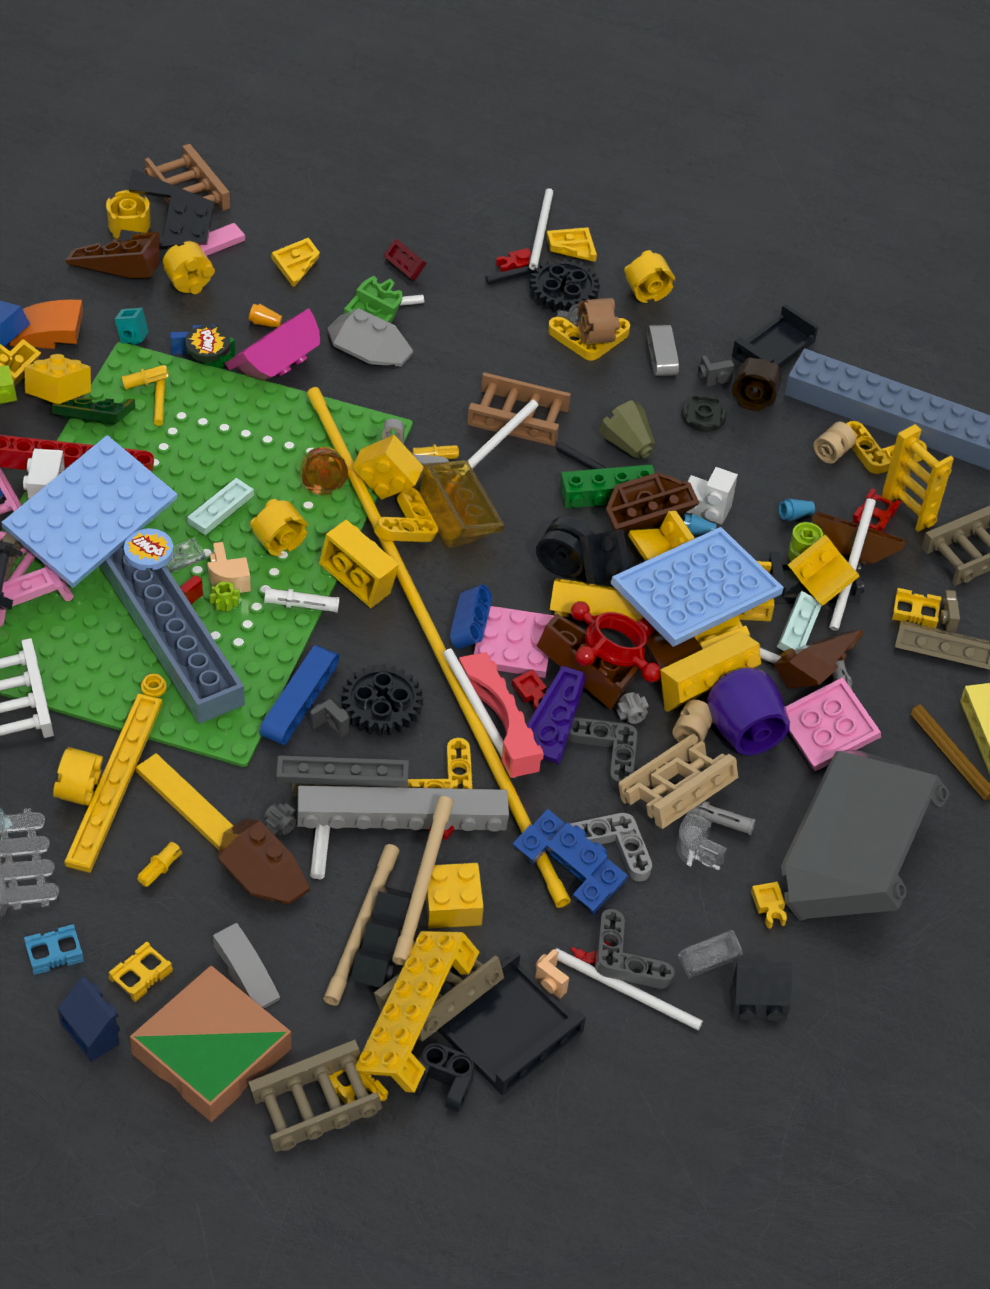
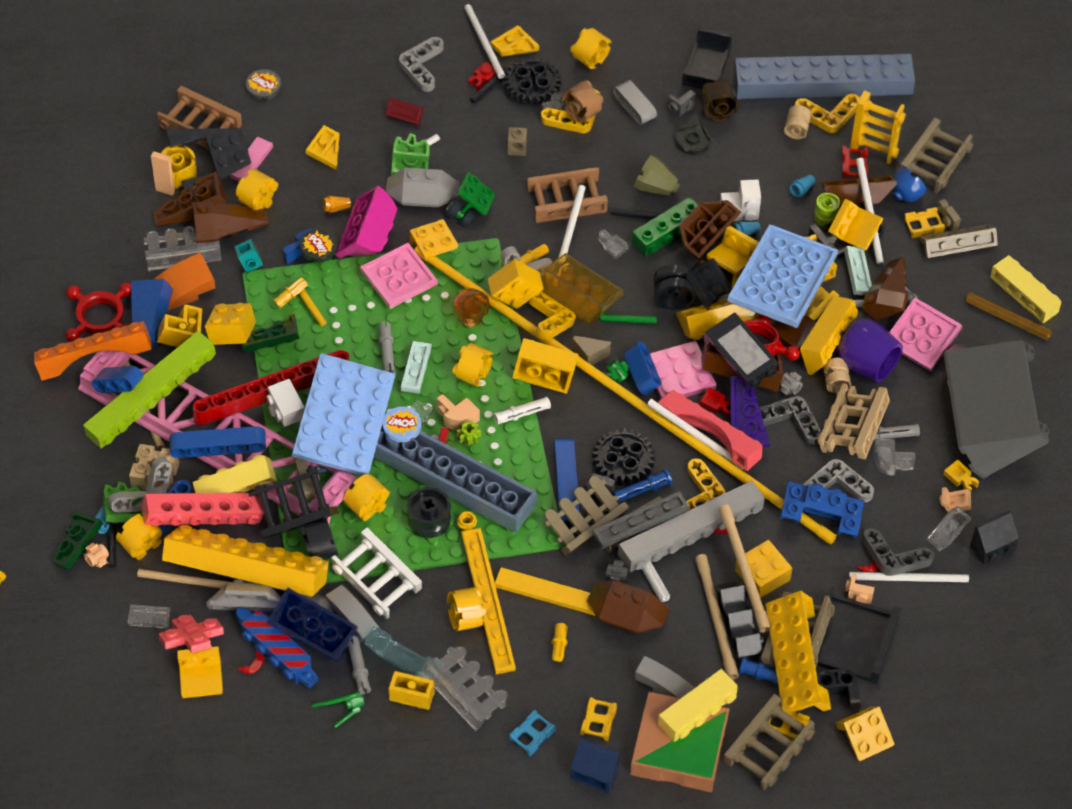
camera: 25 degrees left, 5 degrees up
(58, 608) = (366, 497): none -> yellow brick
(93, 306) = (173, 254): none -> clear fence
(101, 210) = (162, 173): none -> light nougat tile
(115, 656) = (429, 512): none -> black wheel
(128, 278) = (219, 219): none -> reddish brown wedge
(209, 467) = (386, 342): none -> light grey pin
(251, 1007) = (698, 705): none -> light yellow brick
(253, 764) = (579, 523): none -> dark tan fence
(273, 409) = (398, 275): none -> bright pink plate
(279, 179) = (263, 84): none -> tile
(335, 388) = (432, 239): none -> yellow bracket
(365, 1008) = (758, 671): none -> blue pin
(396, 741) = (651, 483): none -> blue pin
(416, 366) = (475, 194): none -> green plate
(430, 574) = (591, 349): none -> dark tan slope
(441, 606) = (617, 370): none -> green gear
(444, 1146) = (866, 732): none -> yellow bracket
(486, 215) = (416, 60): none -> light grey beam
(497, 561) = (628, 318): none -> green bar
(503, 335) = (517, 141): none -> dark tan brick
(534, 480) = (613, 245): none -> clear plate
(584, 639) = (742, 350): none -> panel
(746, 928) = (958, 498): none -> light nougat bracket
(917, 559) = (907, 188): none -> blue cylinder

